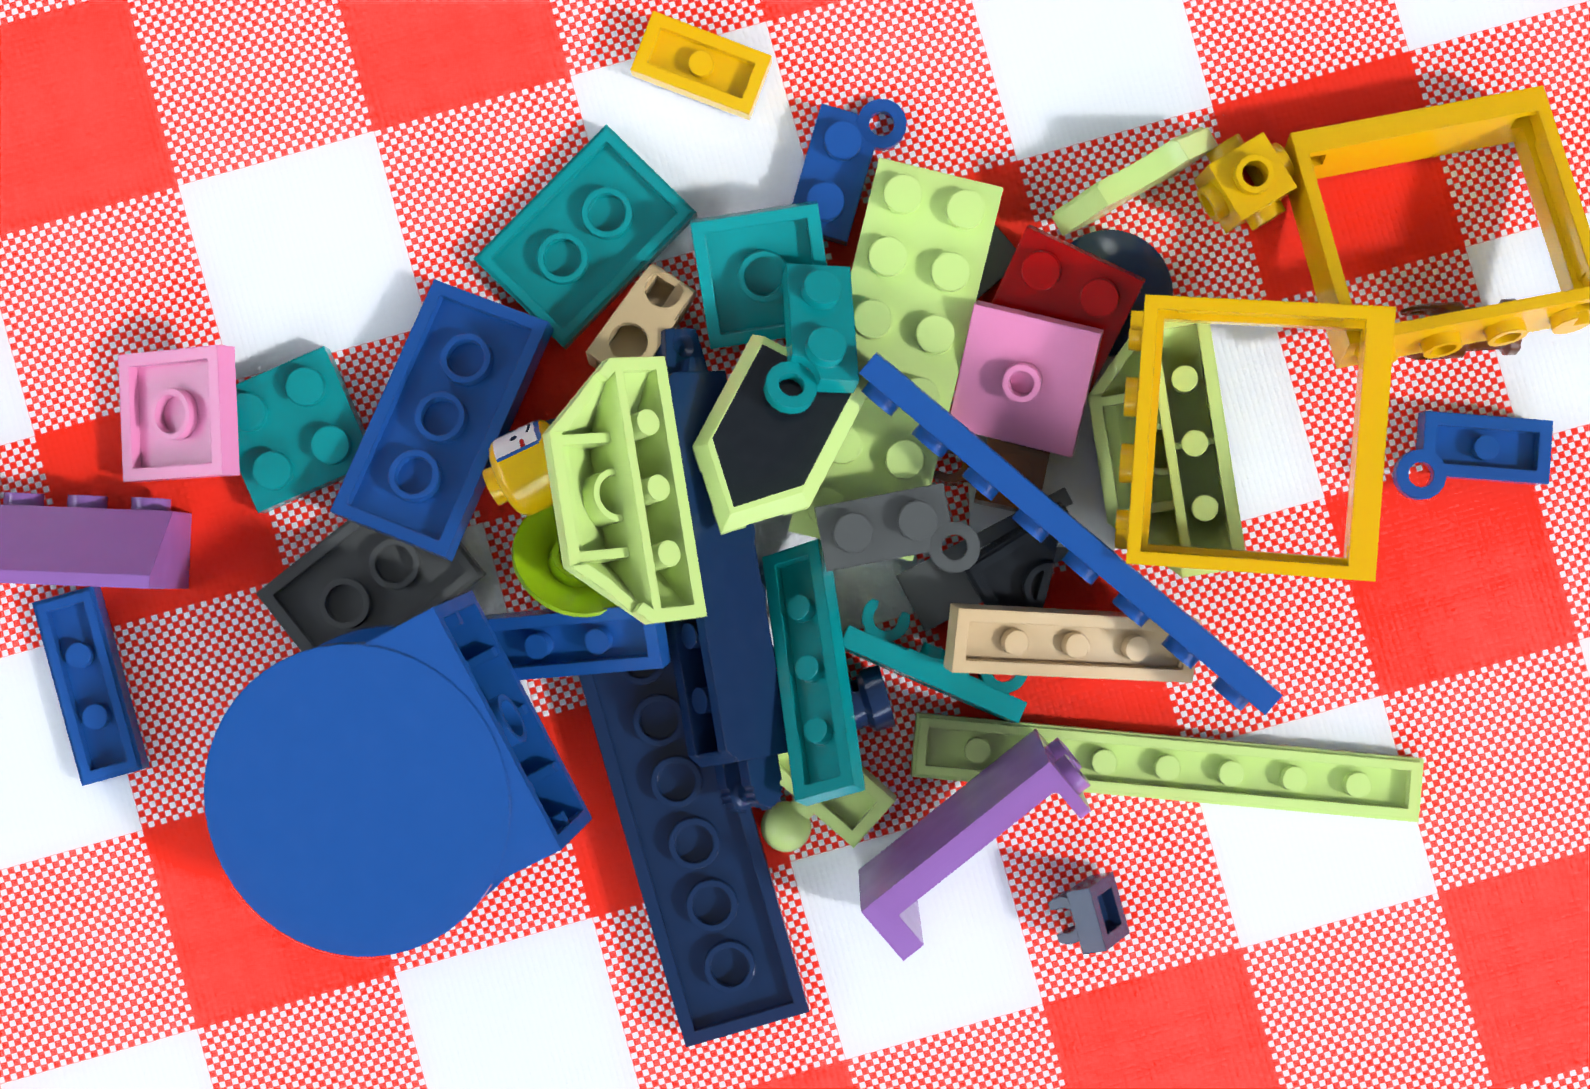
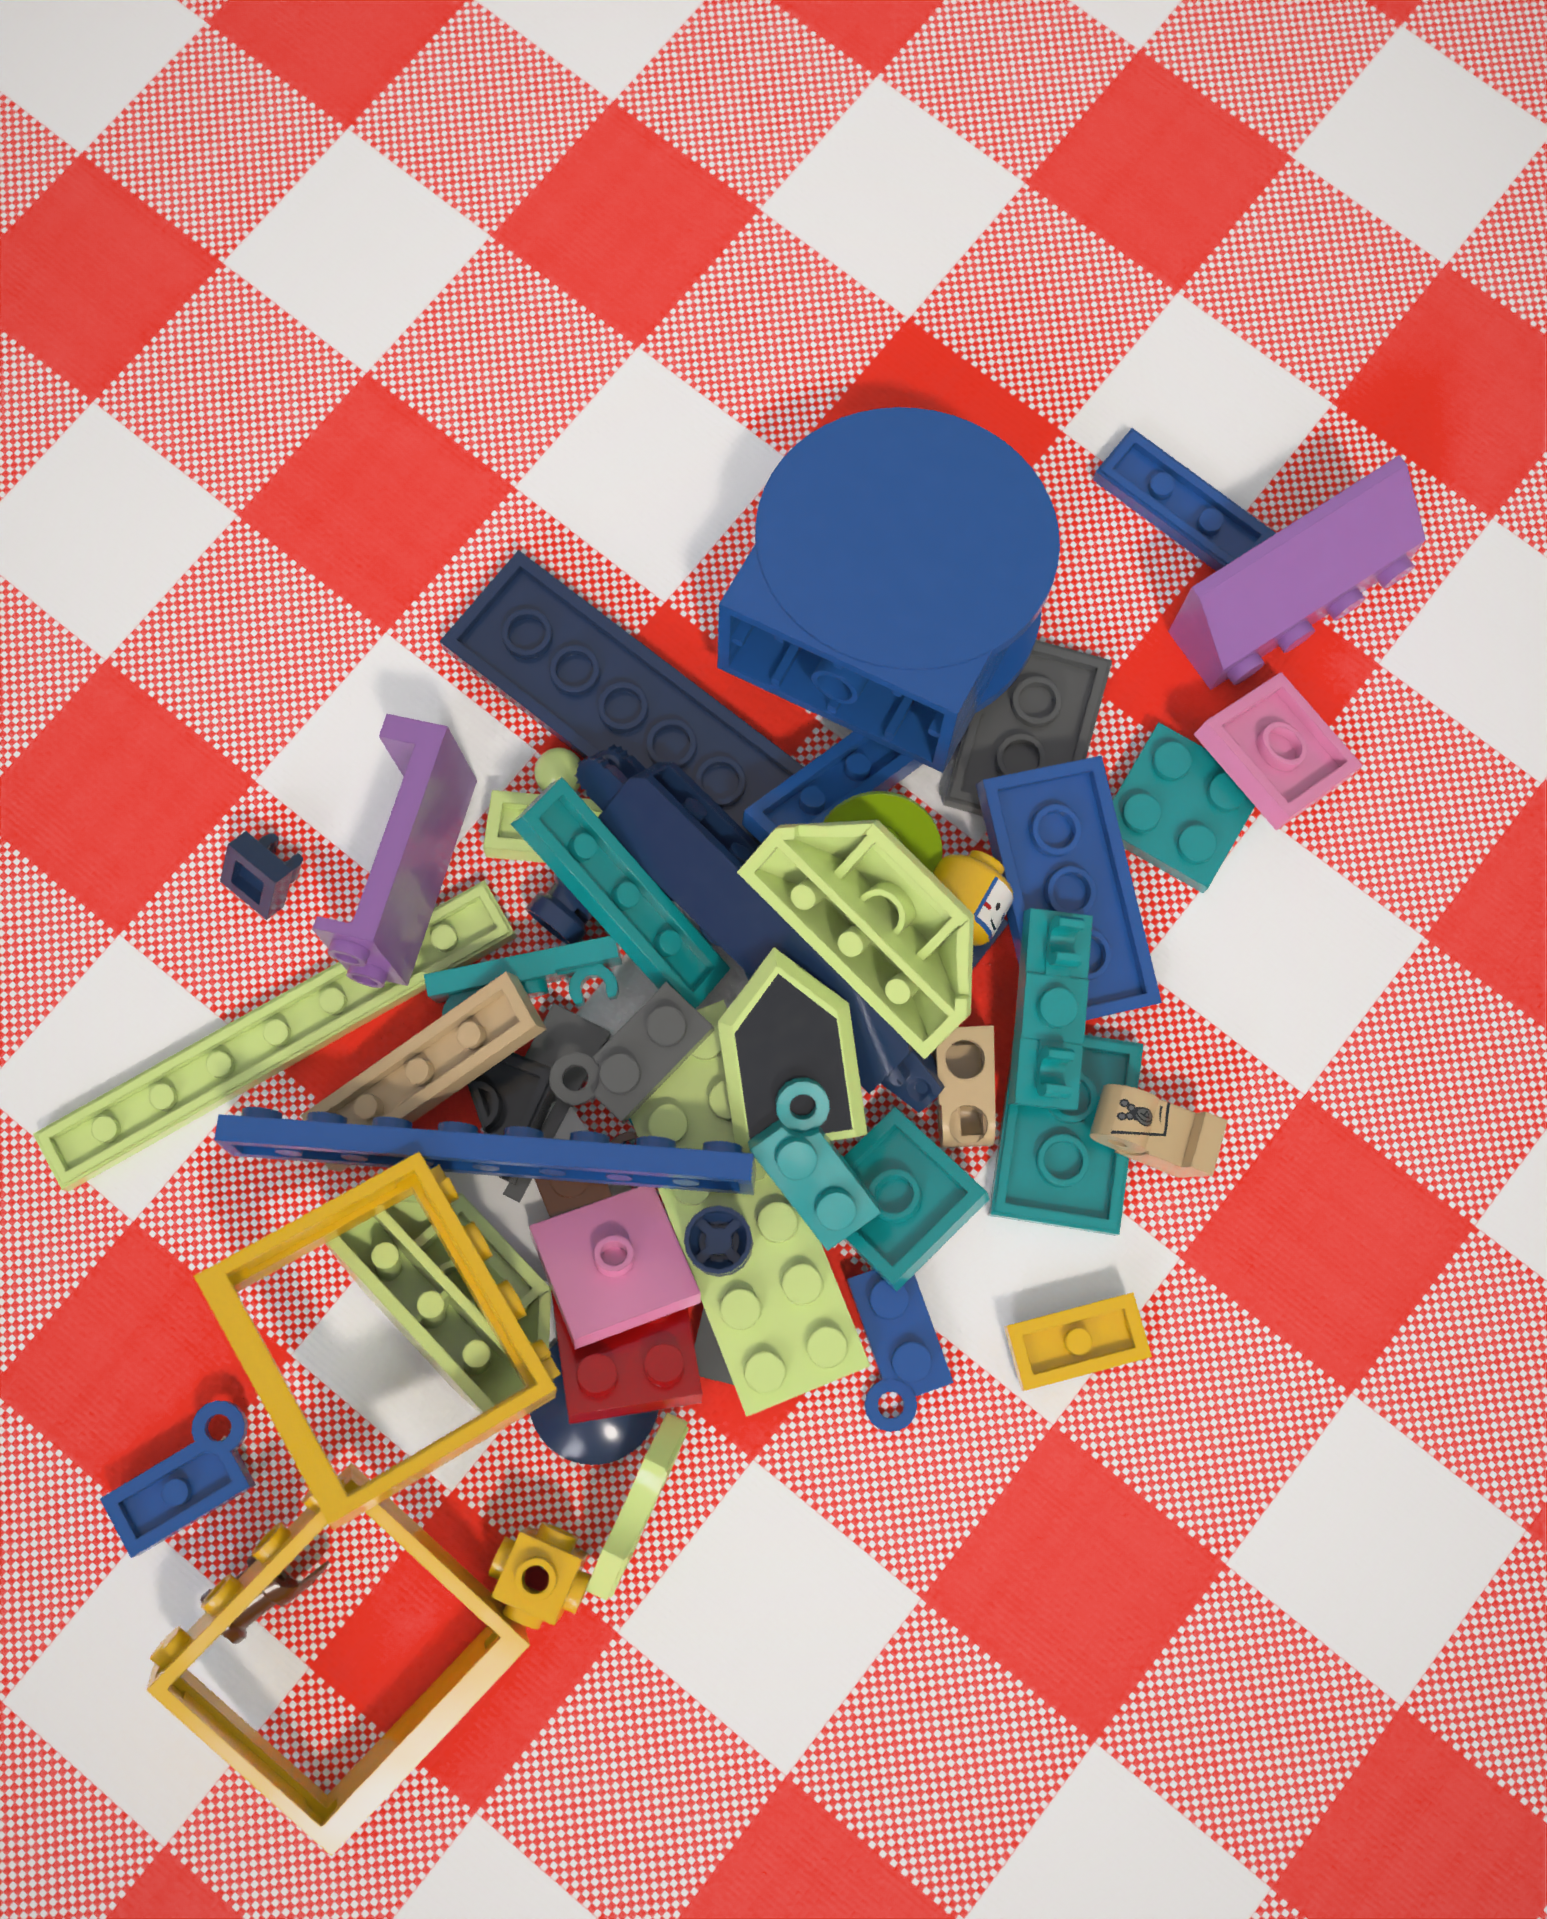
camera: 140 degrees right, 10 degrees down
(515, 175) = (1158, 1132): none -> tan leg
(530, 331) = (1050, 1009): none -> teal plate
(938, 321) = (711, 1234): none -> dark blue wheel

